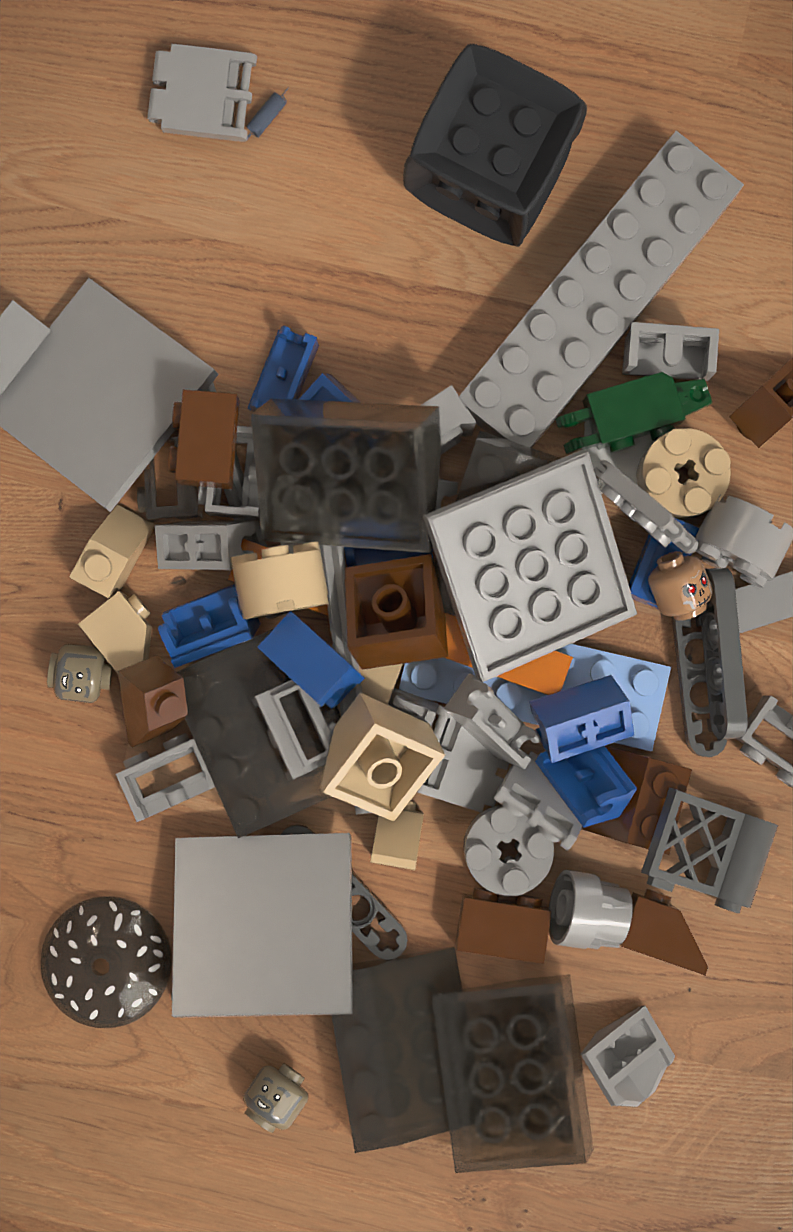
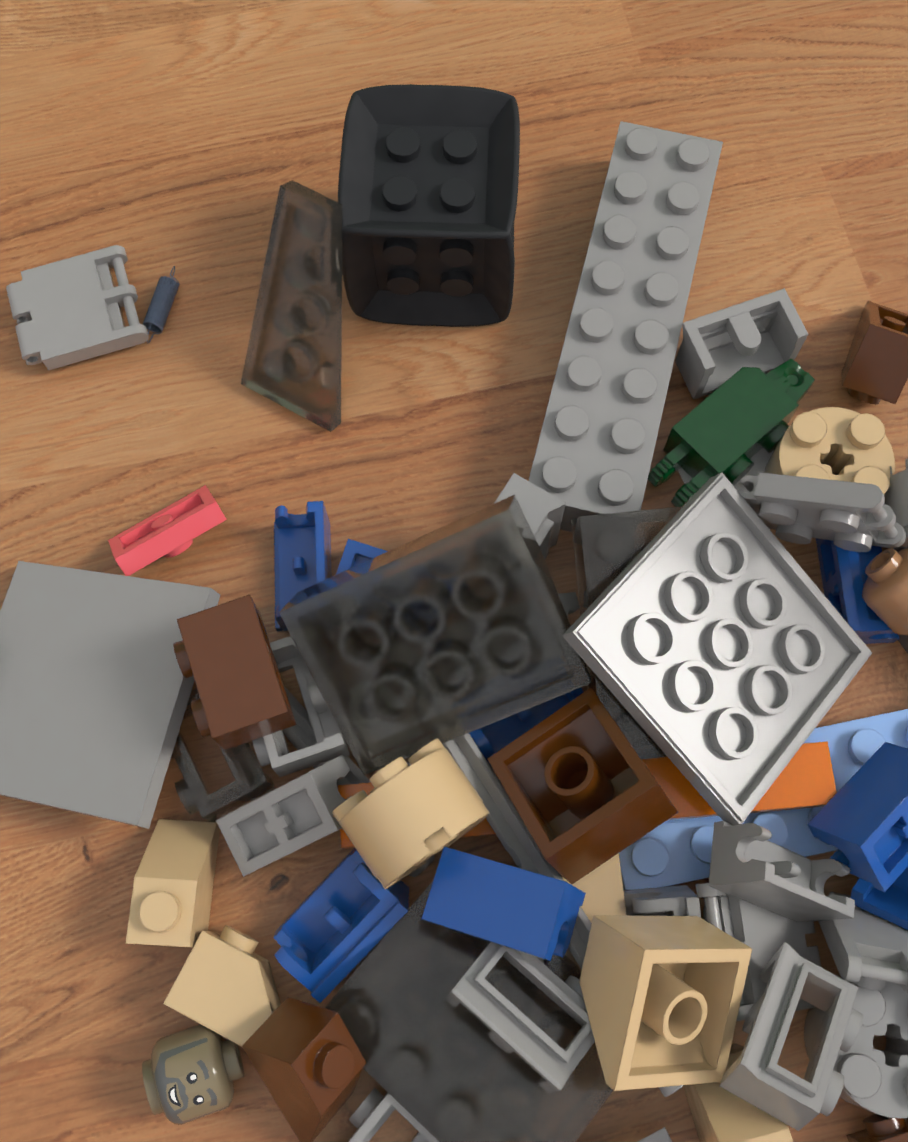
camera: 20 degrees left, 15 degrees down
(200, 303) = (166, 531): none -> coral plate
(359, 189) = (298, 310): none -> clear smoke wing
(418, 837) = (756, 1073): none -> light grey window

